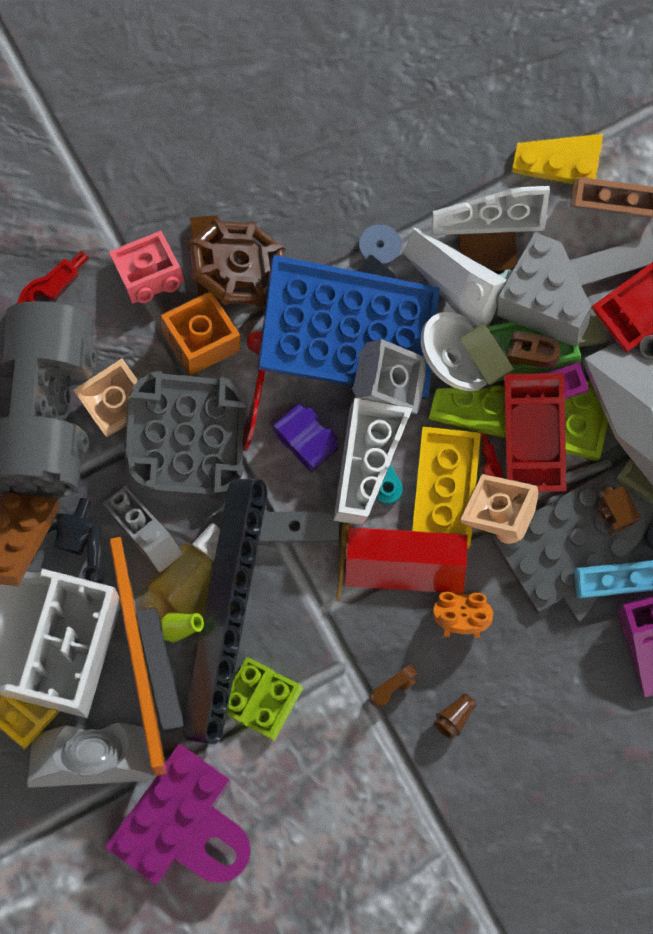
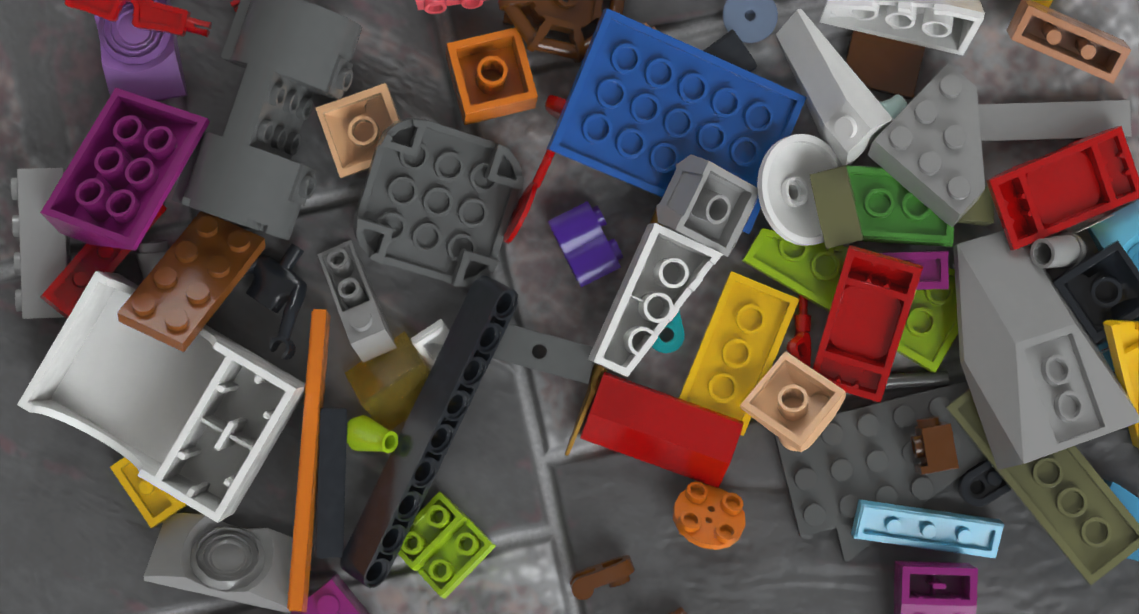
camera: 20 degrees right, 15 degrees up
(543, 352) = (907, 227): reddish brown plate -> none

